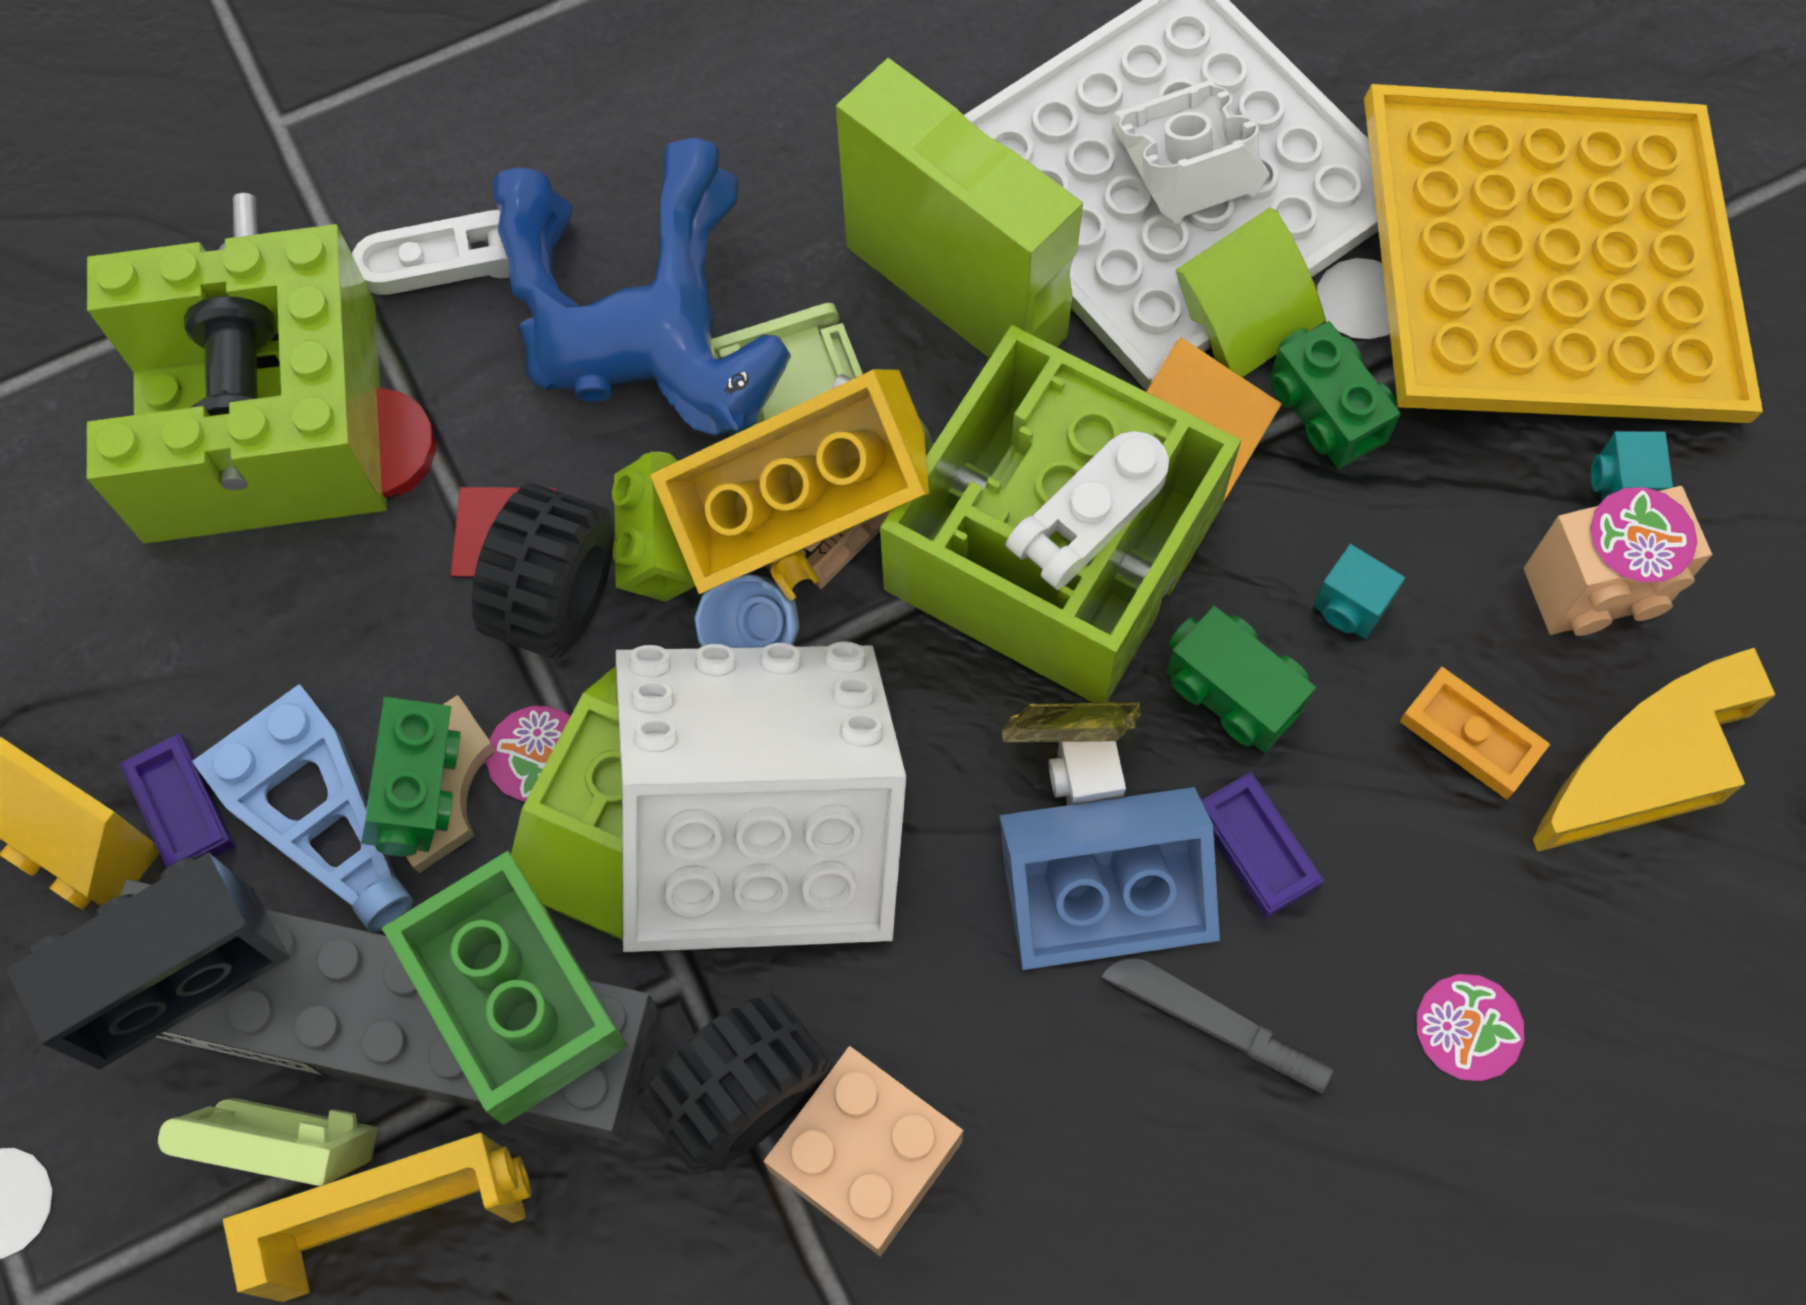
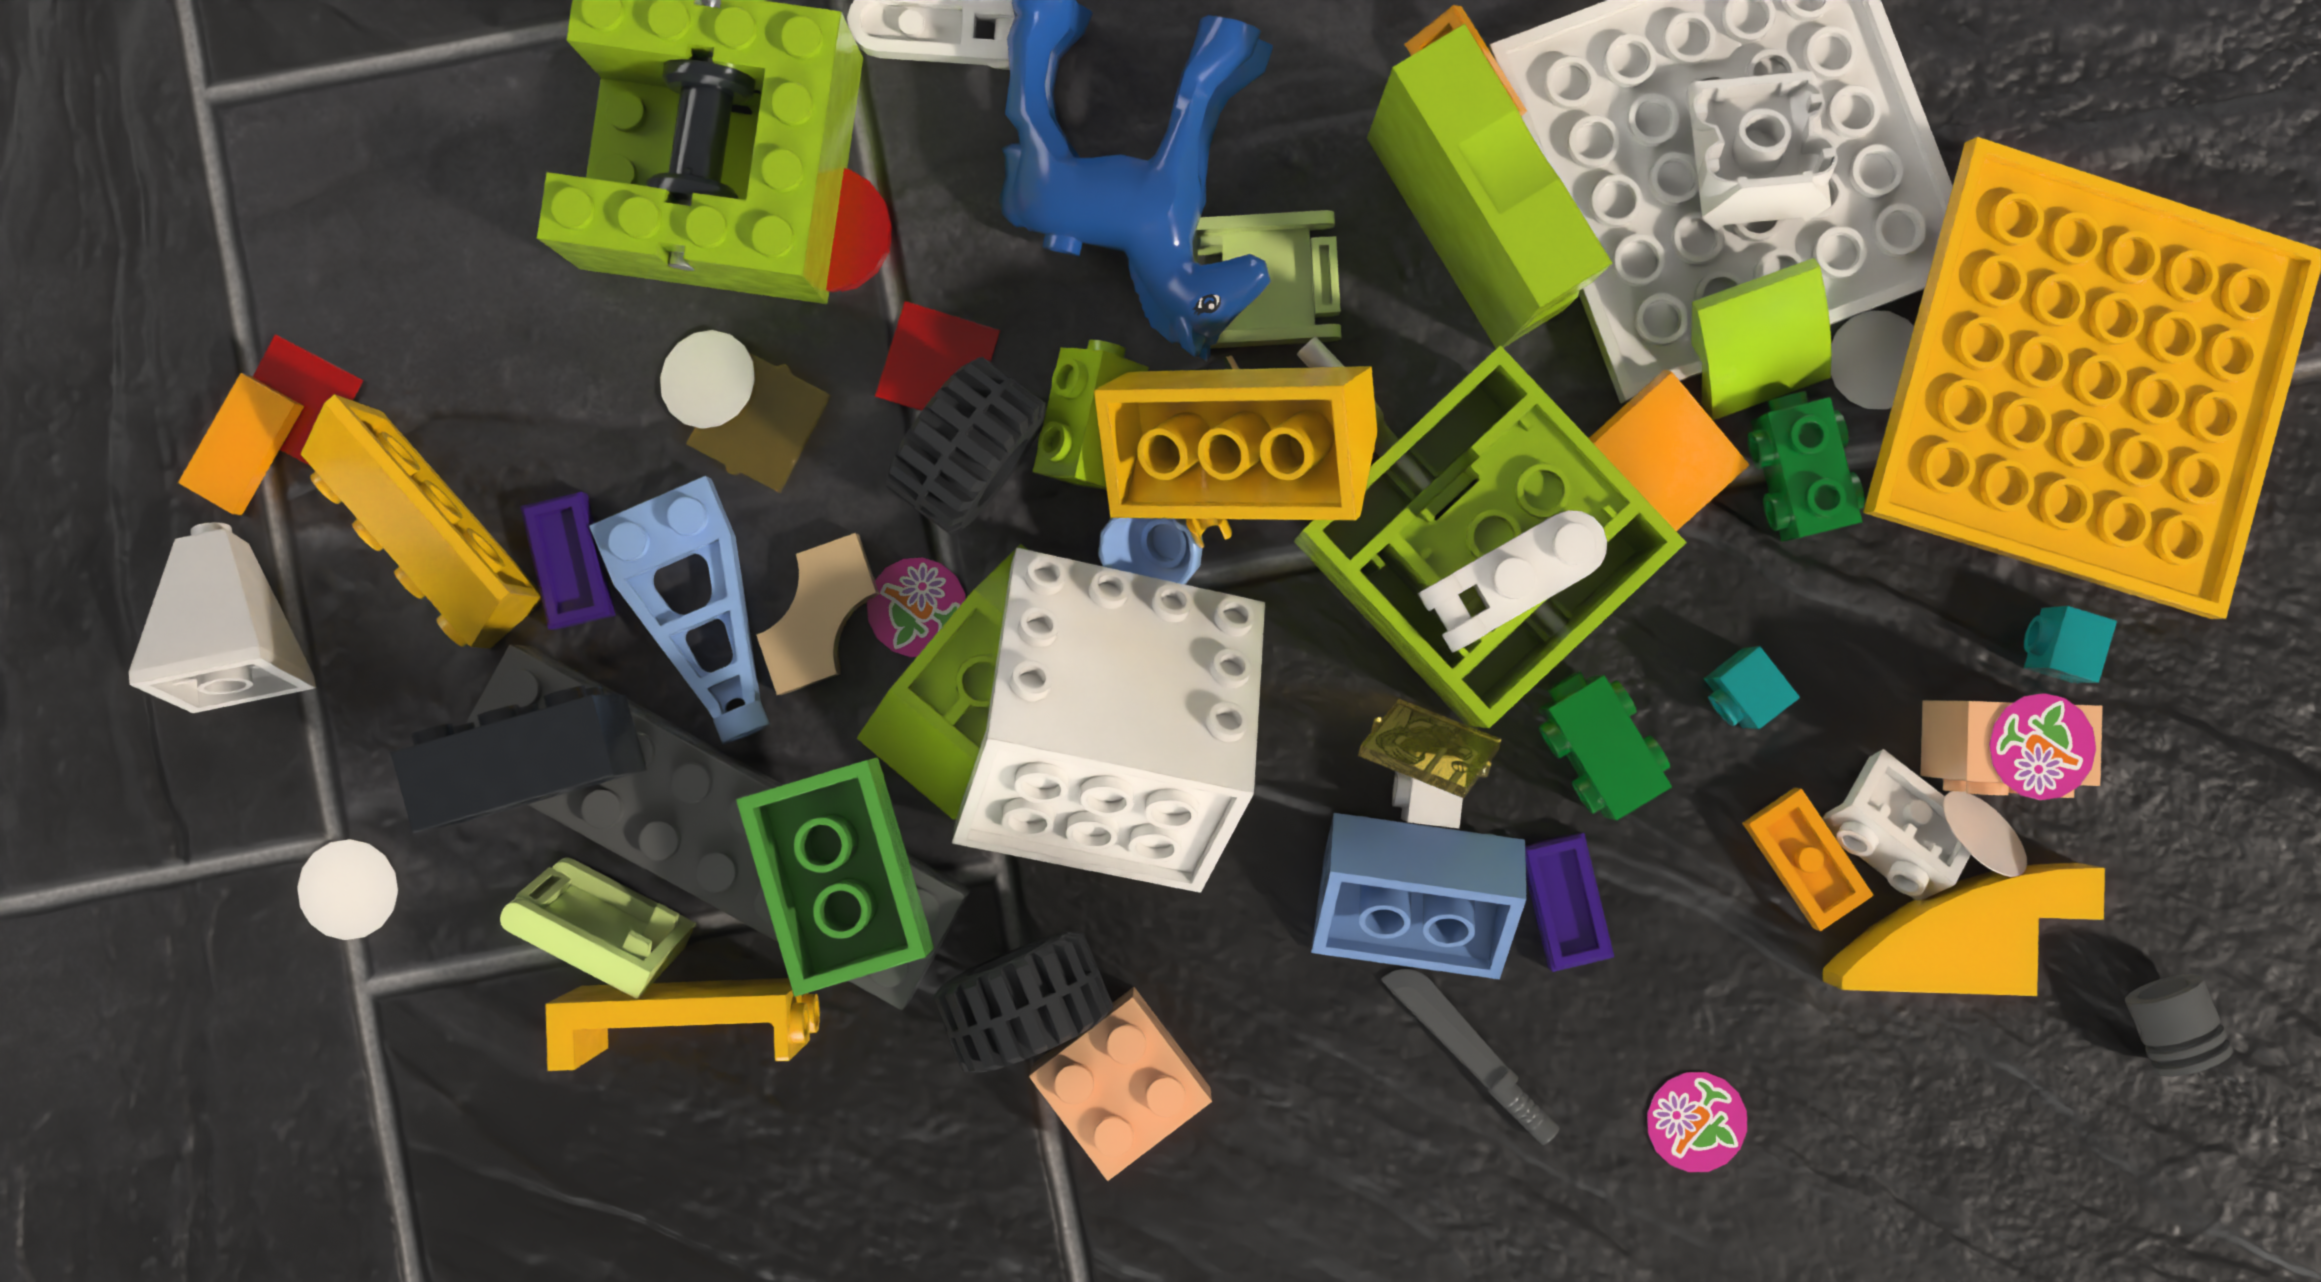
camera: 20 degrees right, 20 degrees up
(284, 602) = (707, 379): none -> white sticker
(342, 626) = (769, 429): none -> clear yellow piece
(406, 777) = (789, 619): green brick -> none
(1554, 679) = (1899, 828): none -> white bracket
(1630, 656) = (1984, 833): none -> white sticker

